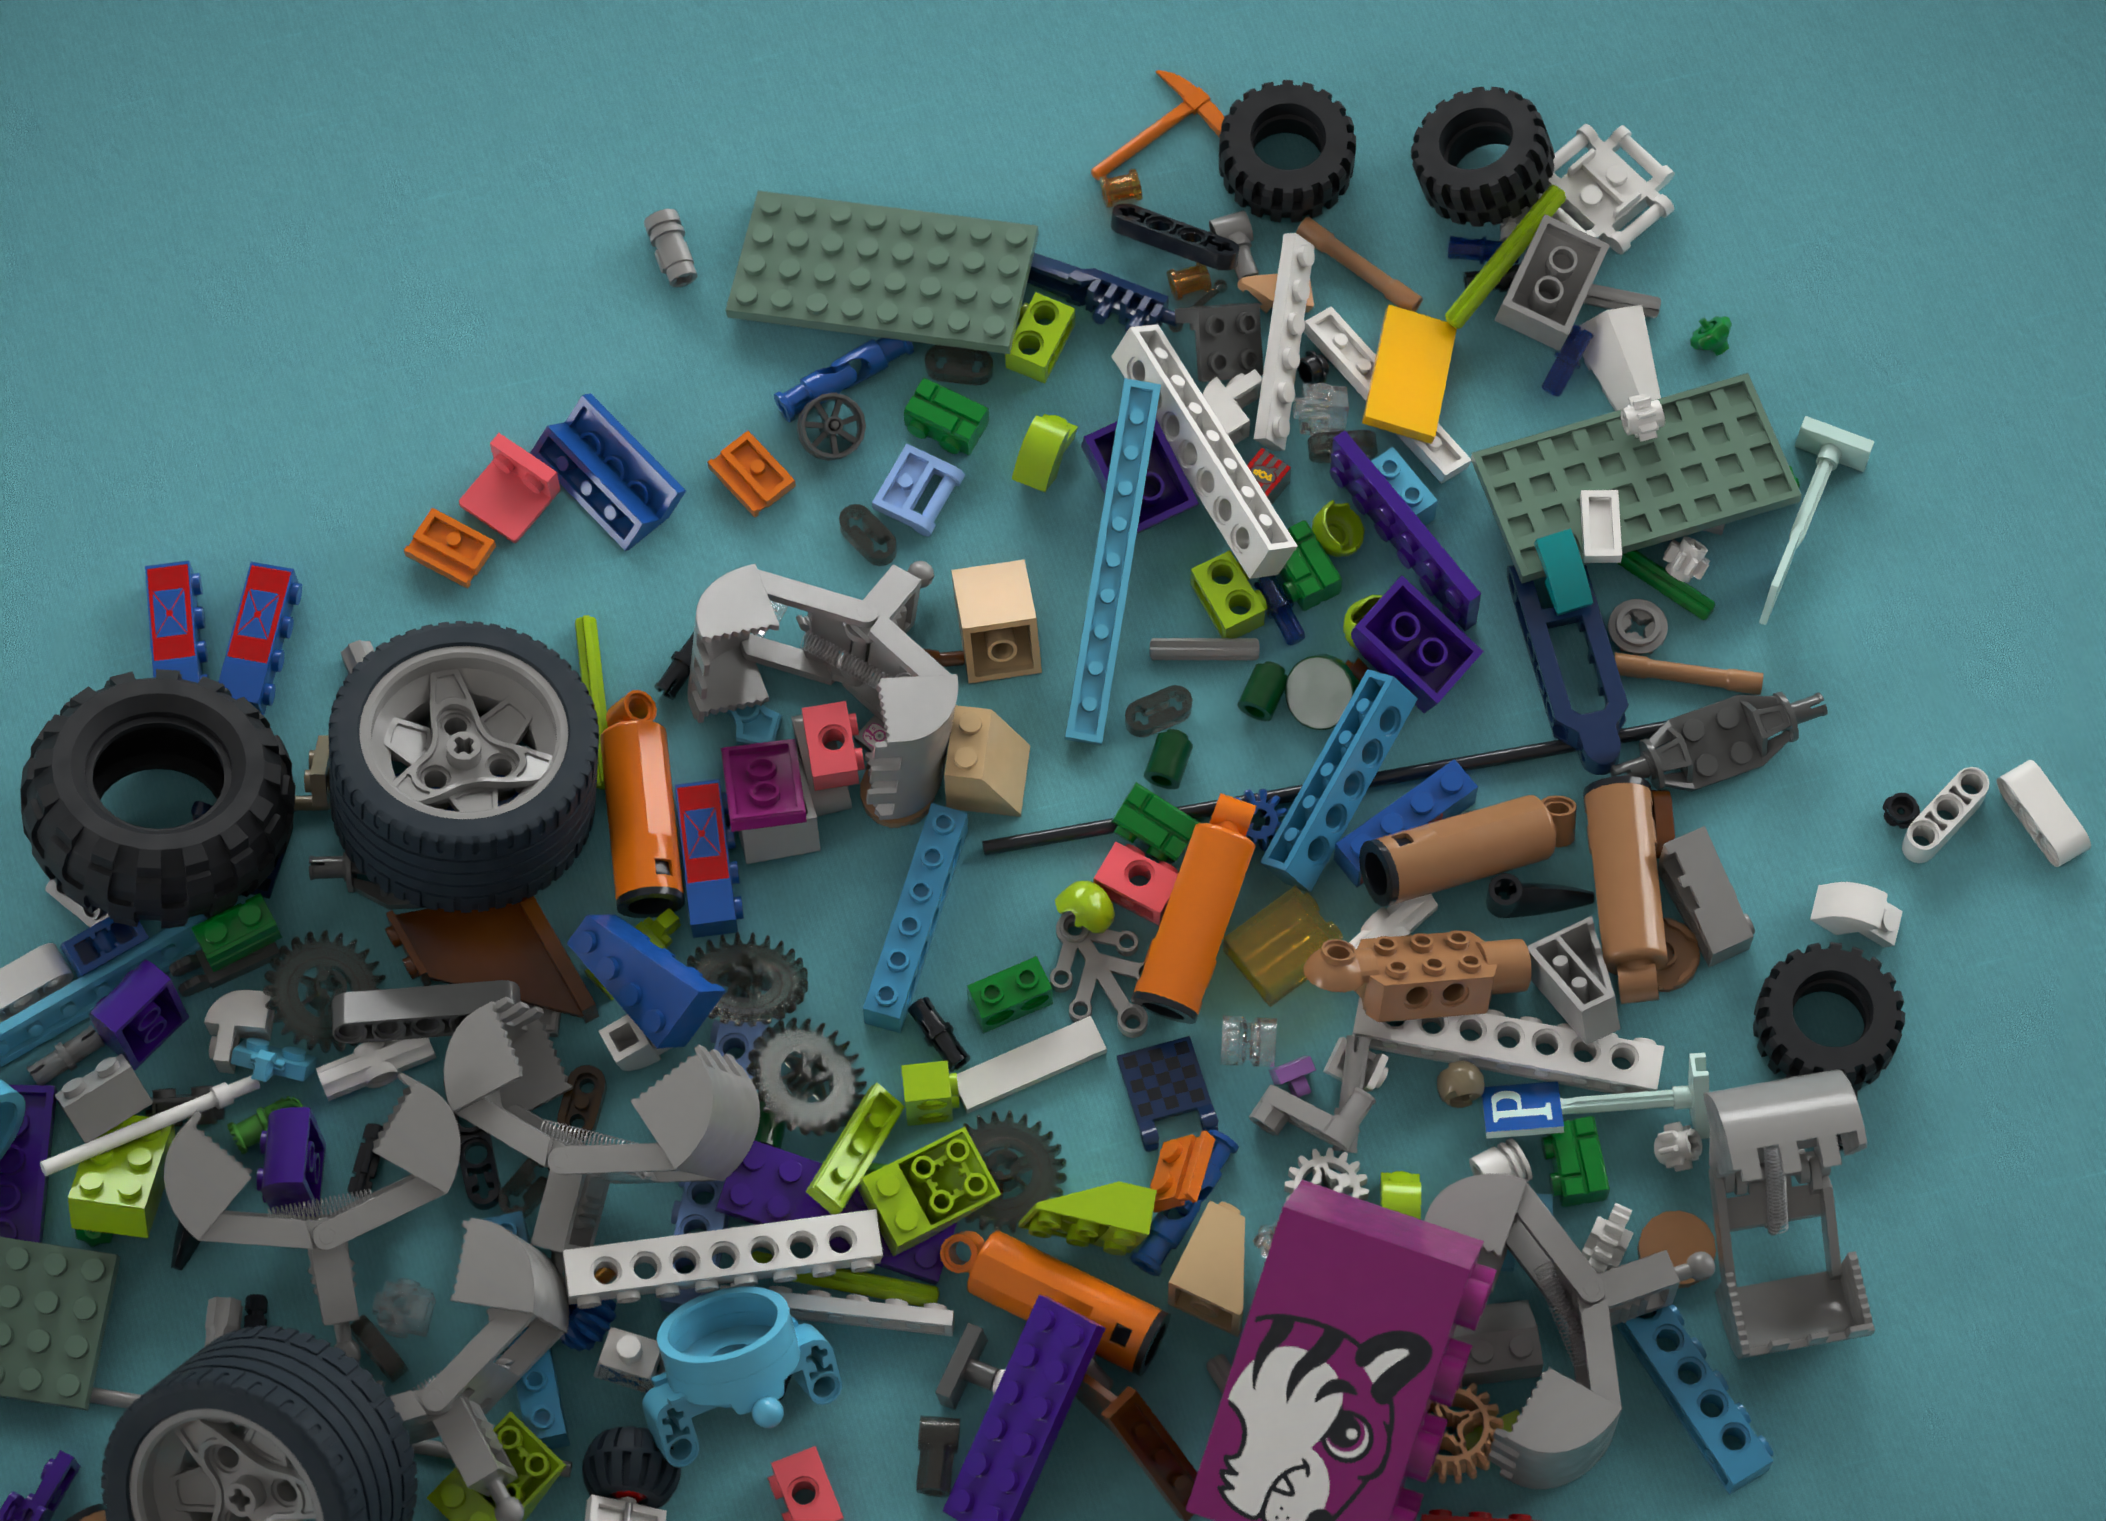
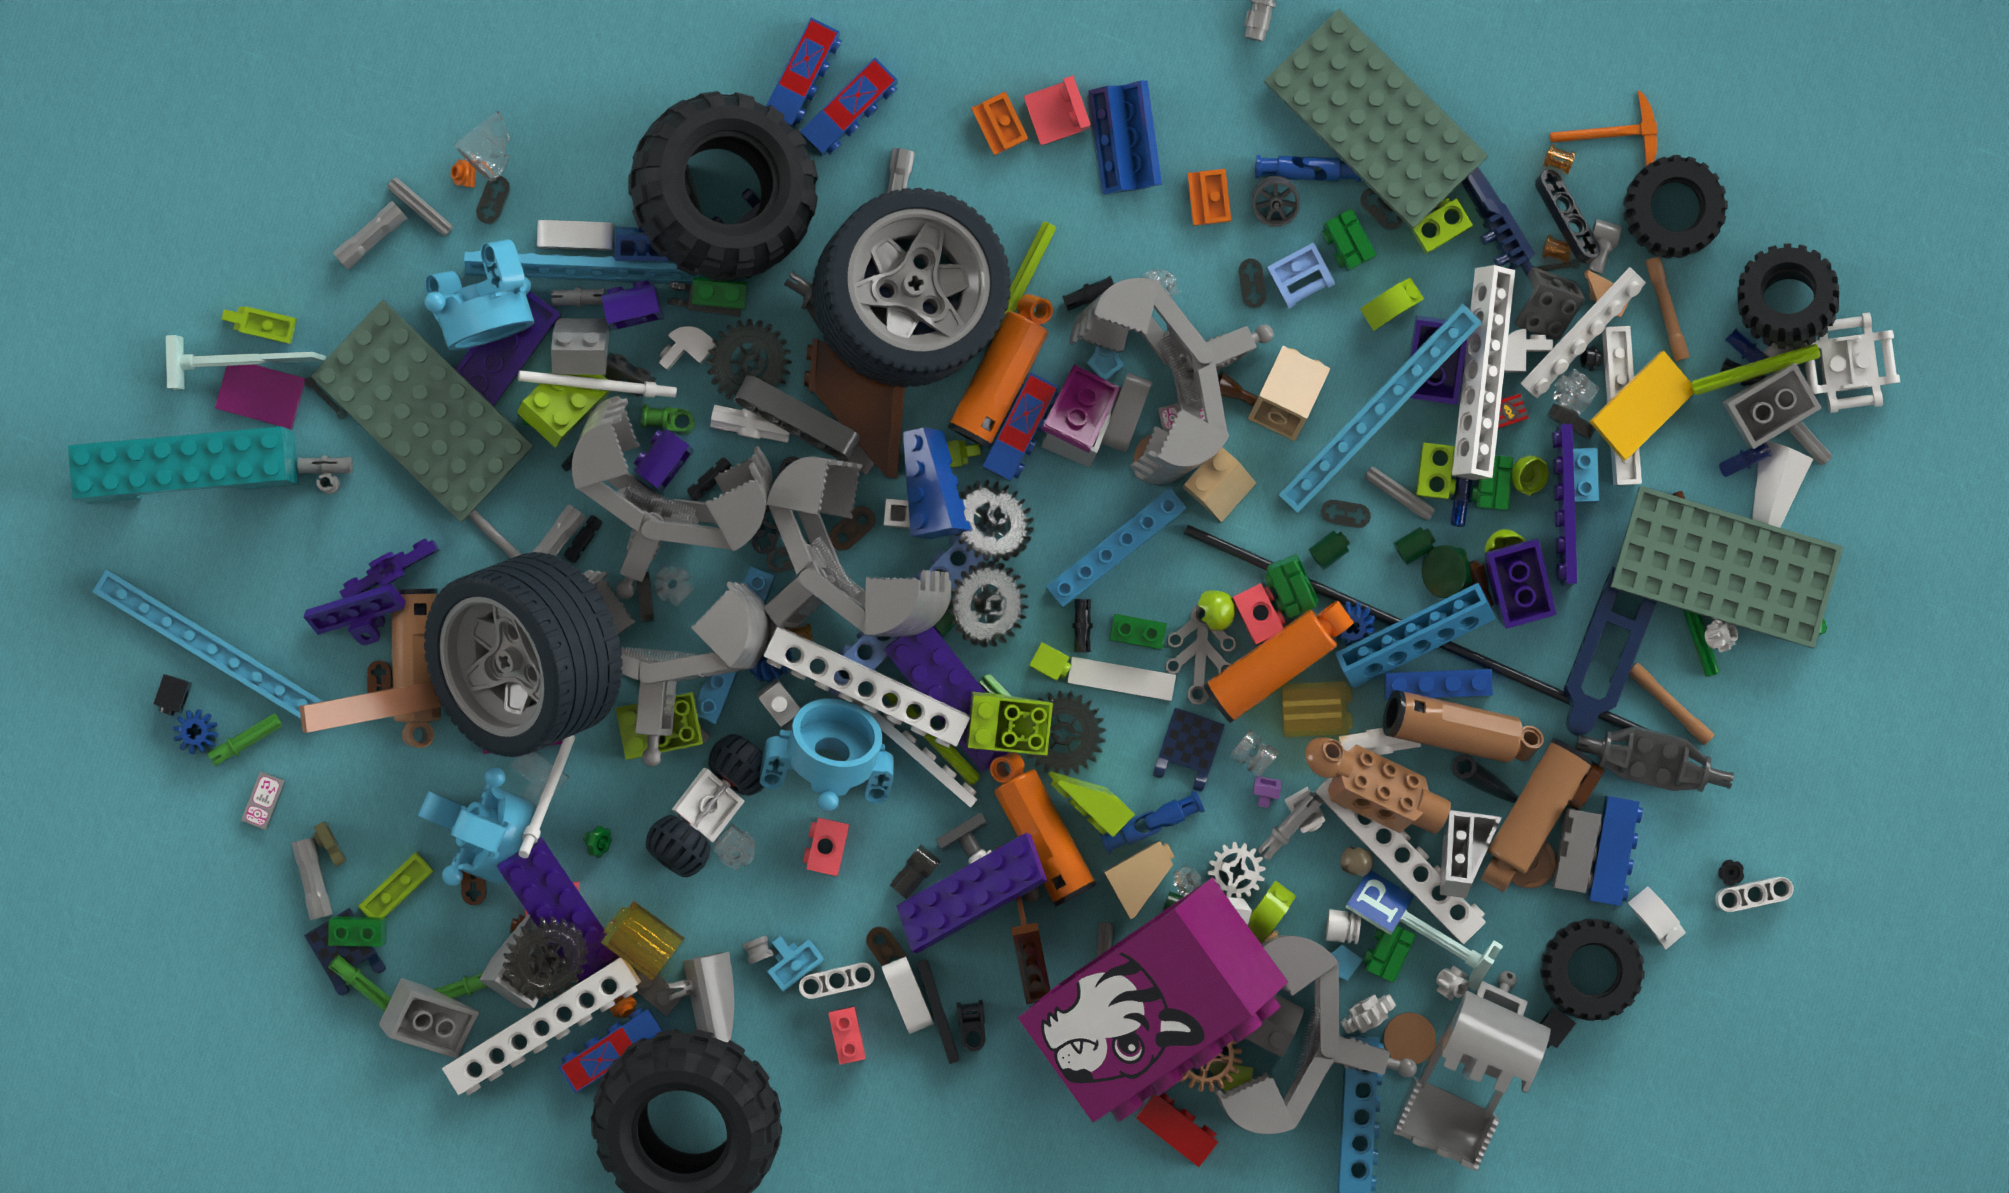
camera: 30 degrees right, 20 degrees up
(271, 1060) = (693, 383): medium azure hinge -> none
(316, 779) = (825, 229): dark tan plate -> none
(828, 766) = (1136, 397): coral brick -> none
(855, 1149) = (985, 668): lime tile -> none
(1181, 1170) = (1160, 805): orange plate -> none
(1339, 1130) = (1241, 804): light grey beam -> none
(1564, 572) = (1637, 601): teal slope -> none
(1600, 526) = (1679, 587): white tile -> none
(1642, 417) = (1755, 537): white gear -> none
(1642, 613) = (1672, 647): light grey gear -> none
(1712, 335) = (1845, 501): green piece -> none
(1756, 881) = (1614, 850): none -> blue brick
(1832, 447) = (1861, 624): light aqua piece -> none
(2043, 813) = (1811, 932): white beam -> none

